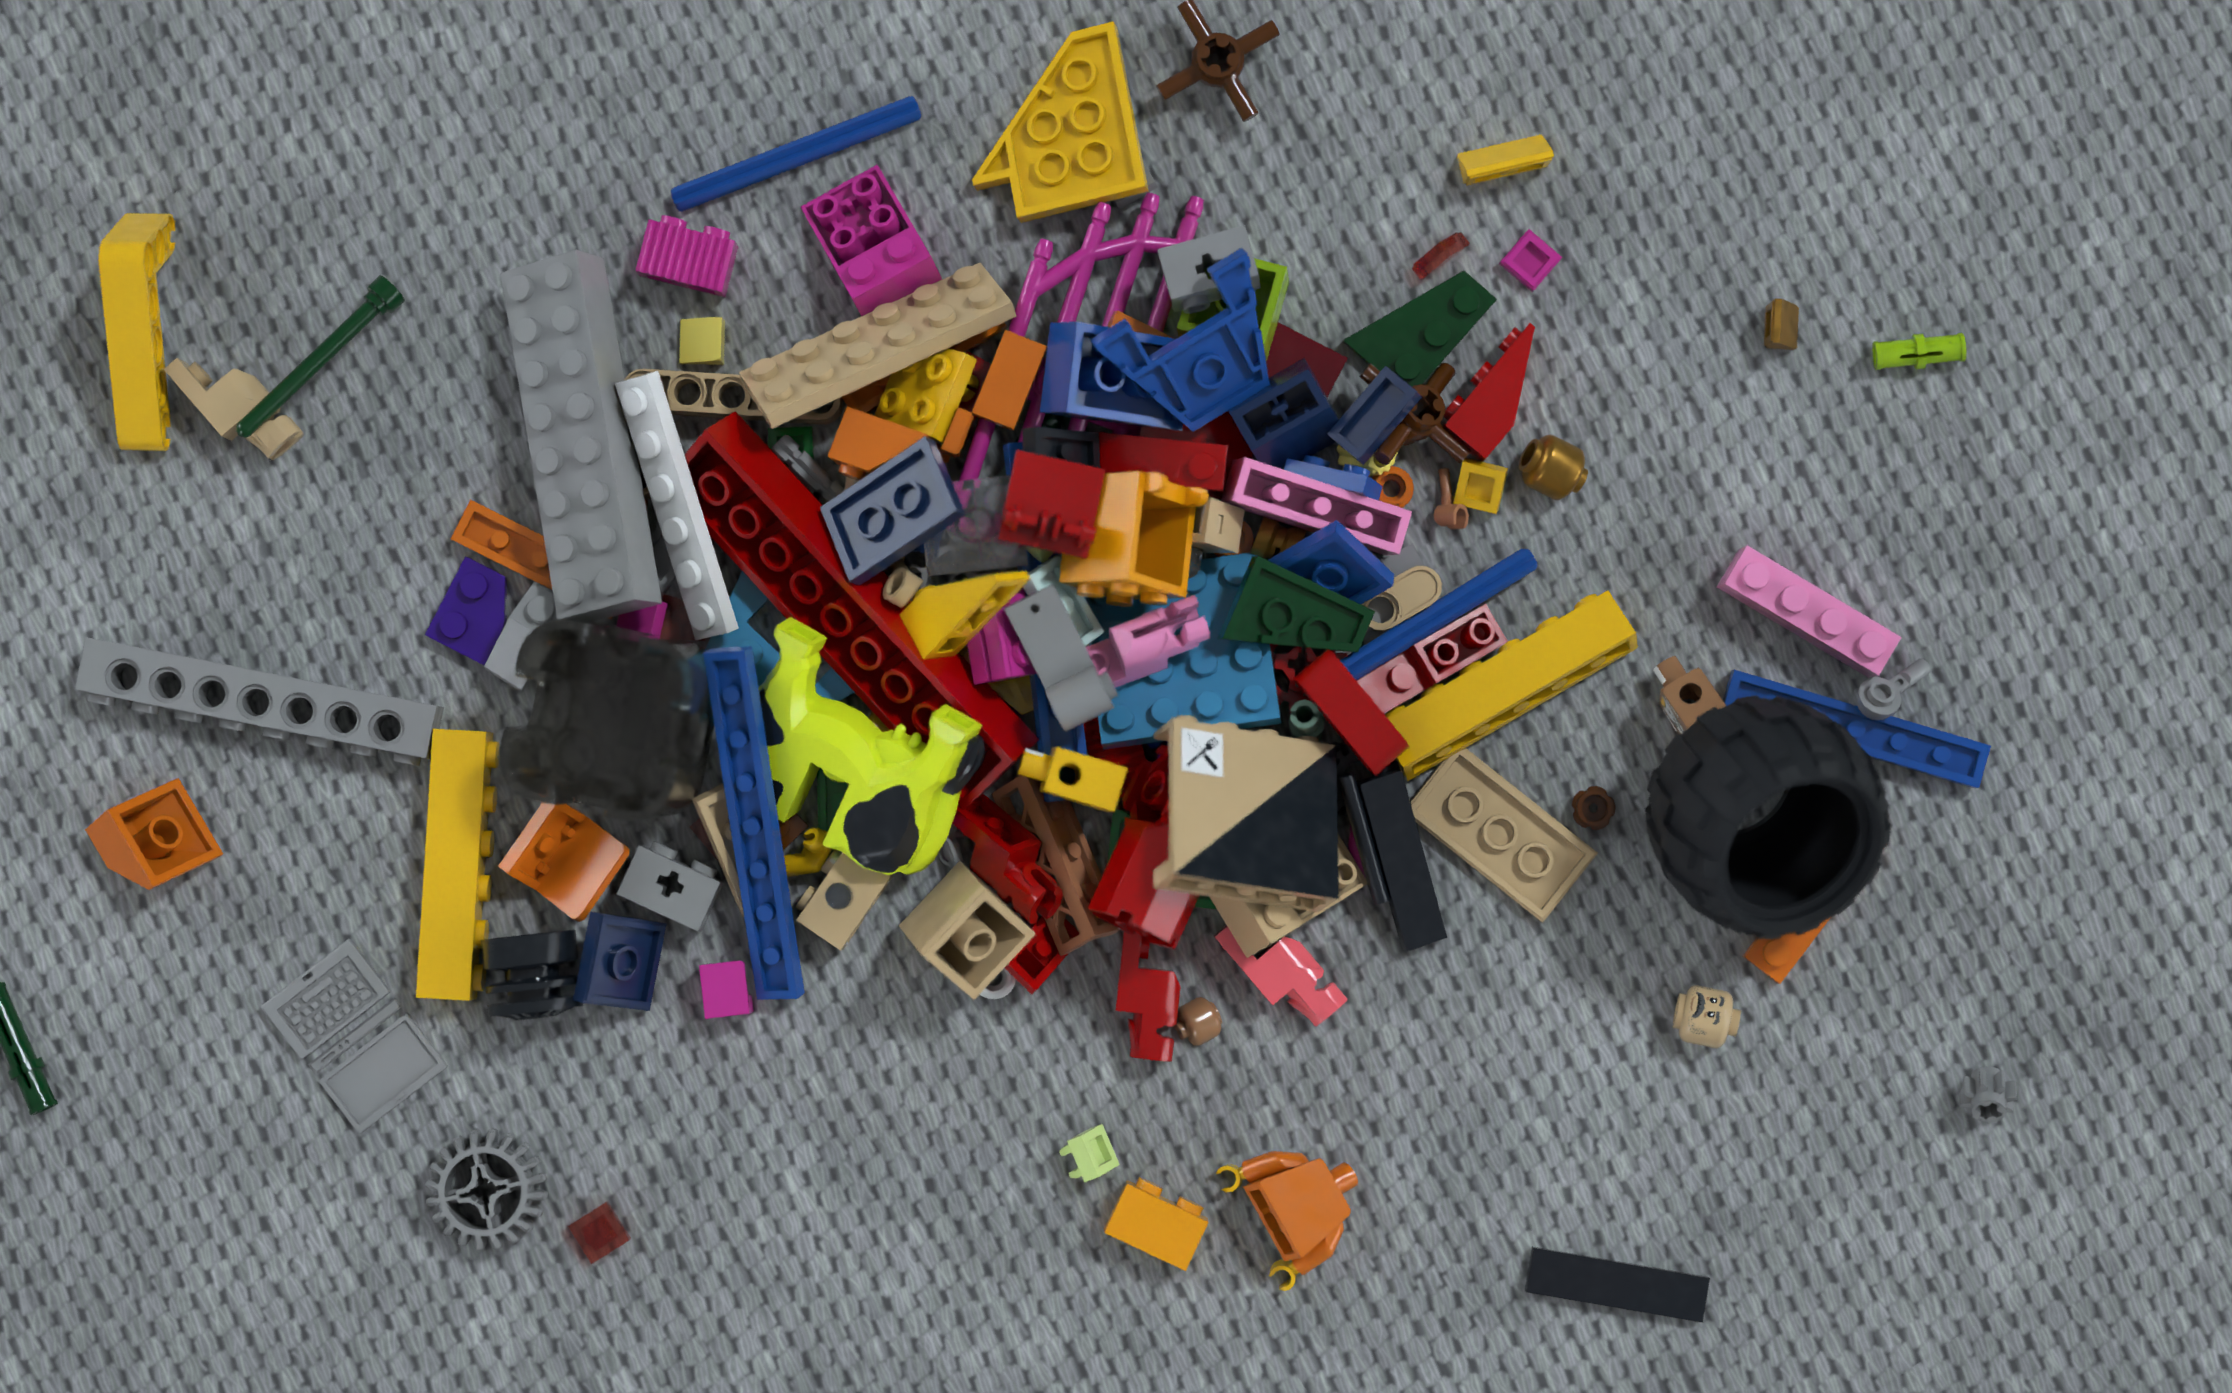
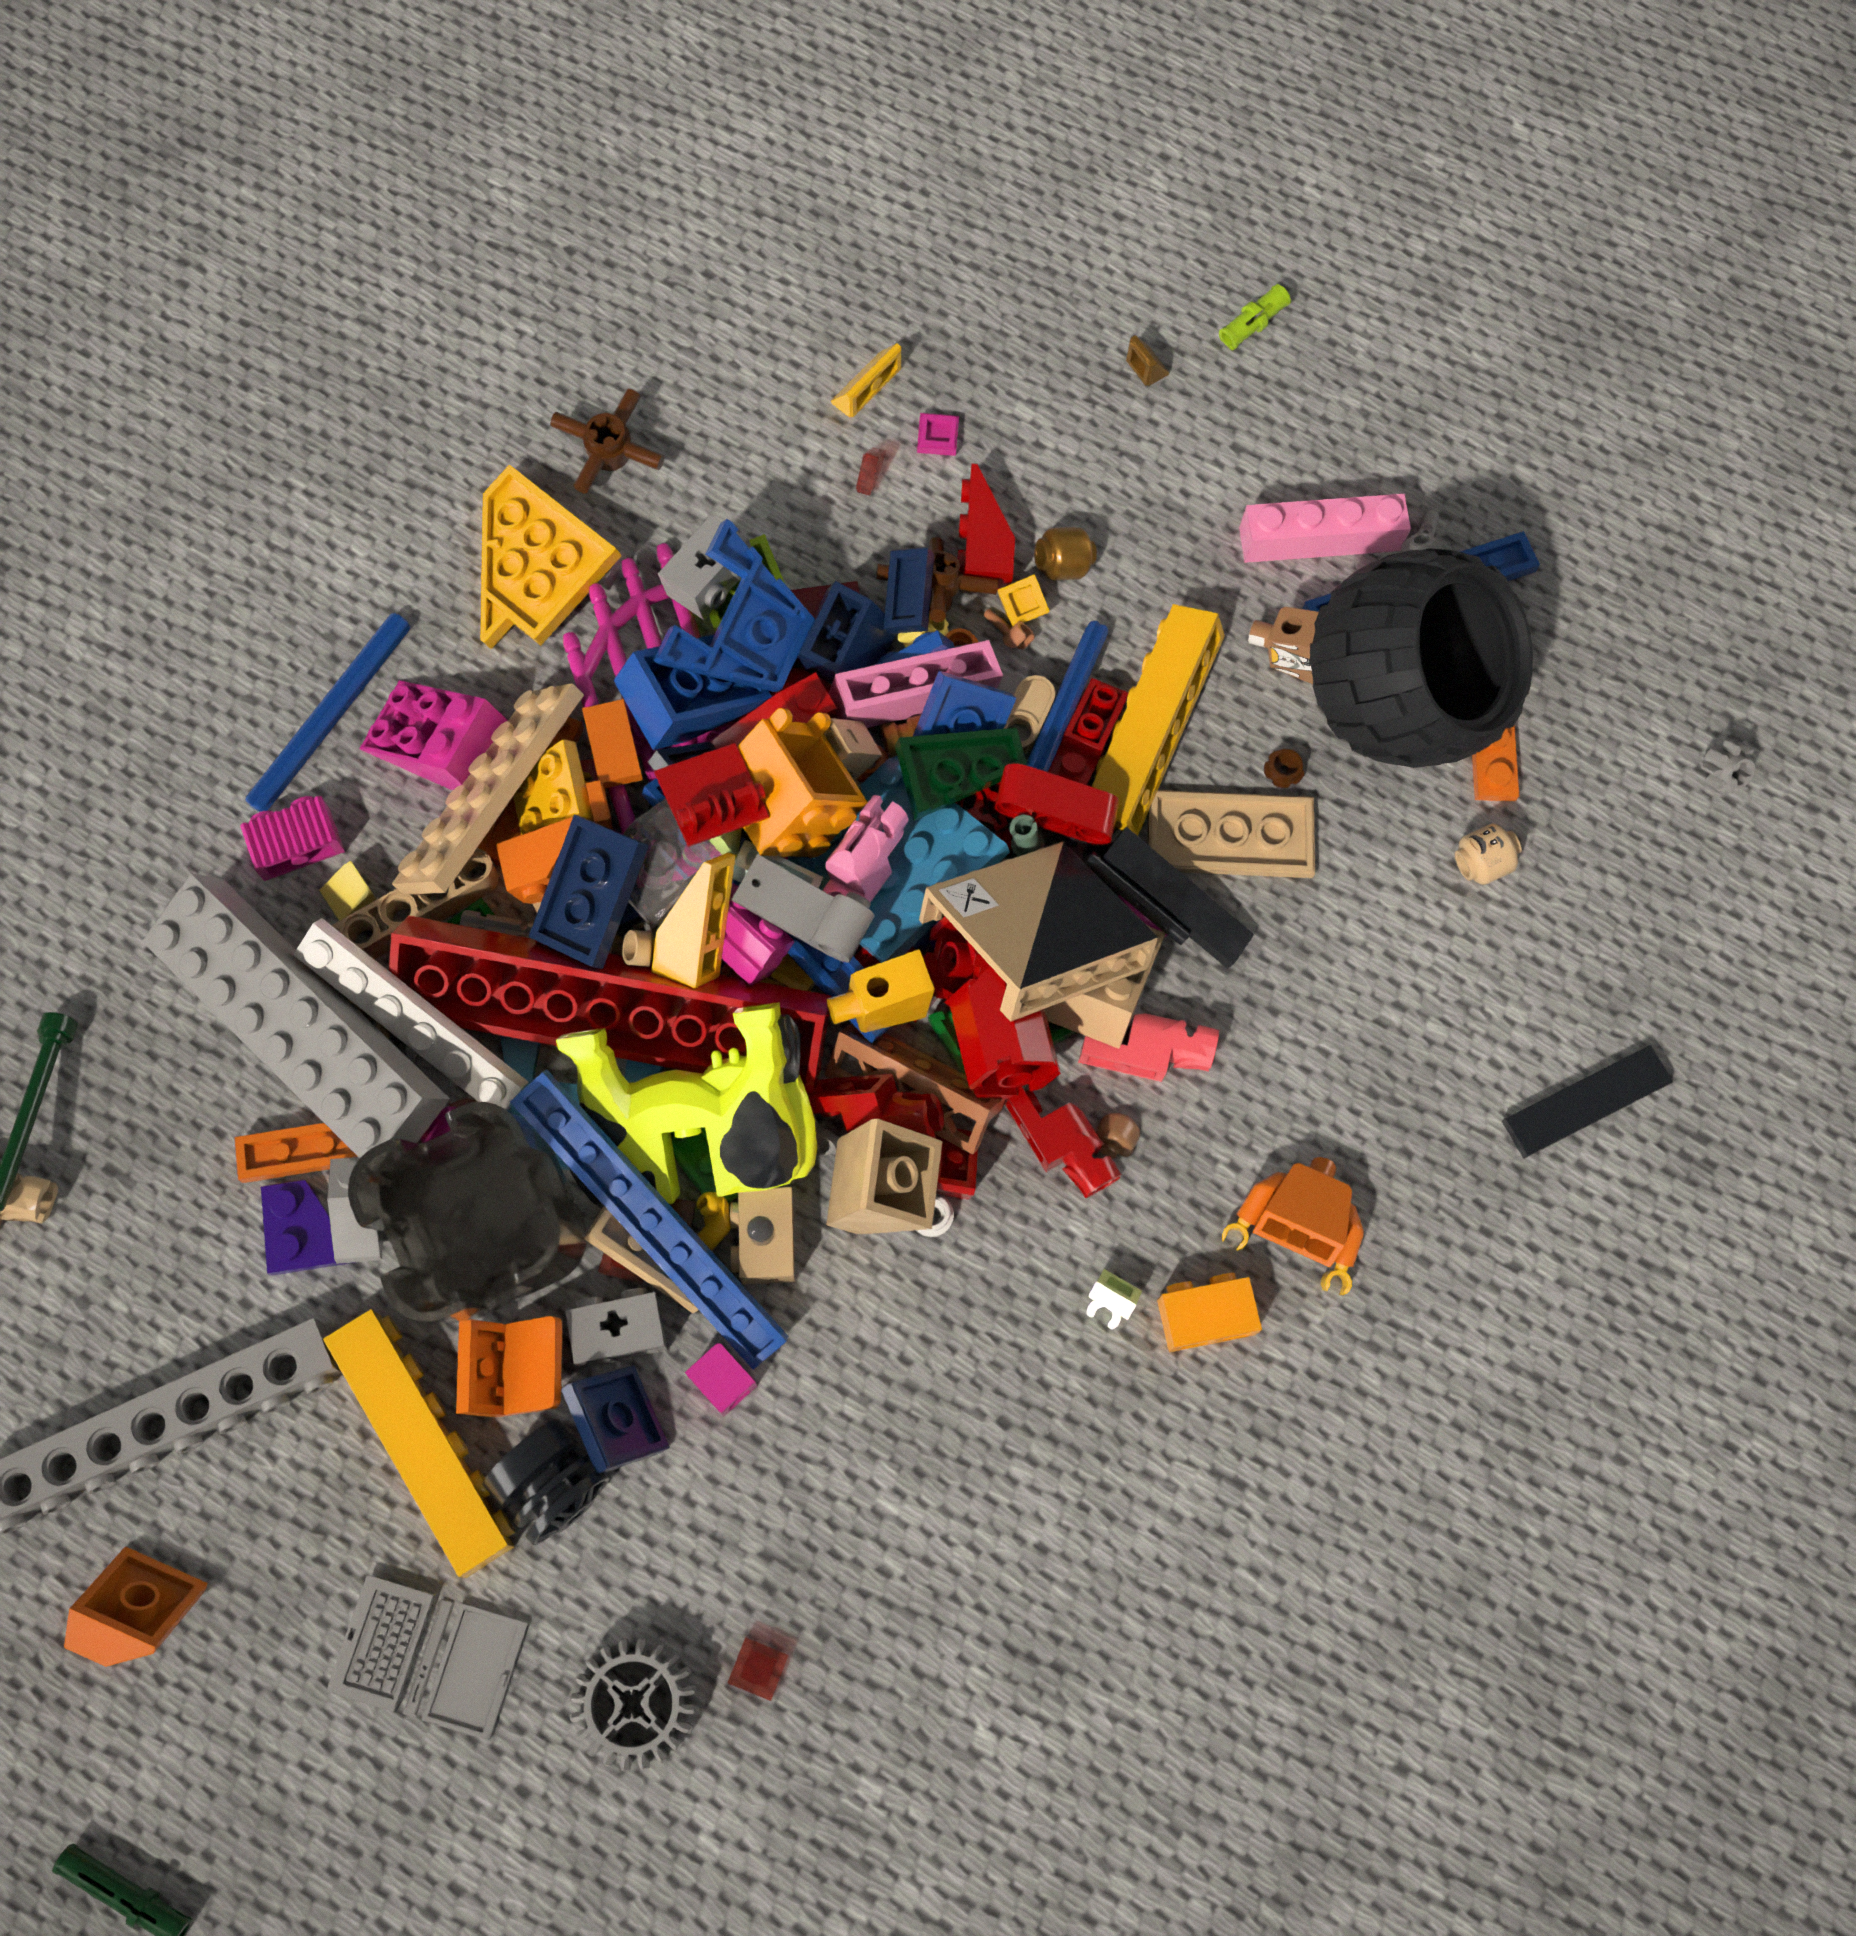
camera: 40 degrees left, 15 degrees down
(1423, 331) = (897, 522): dark green wing -> none

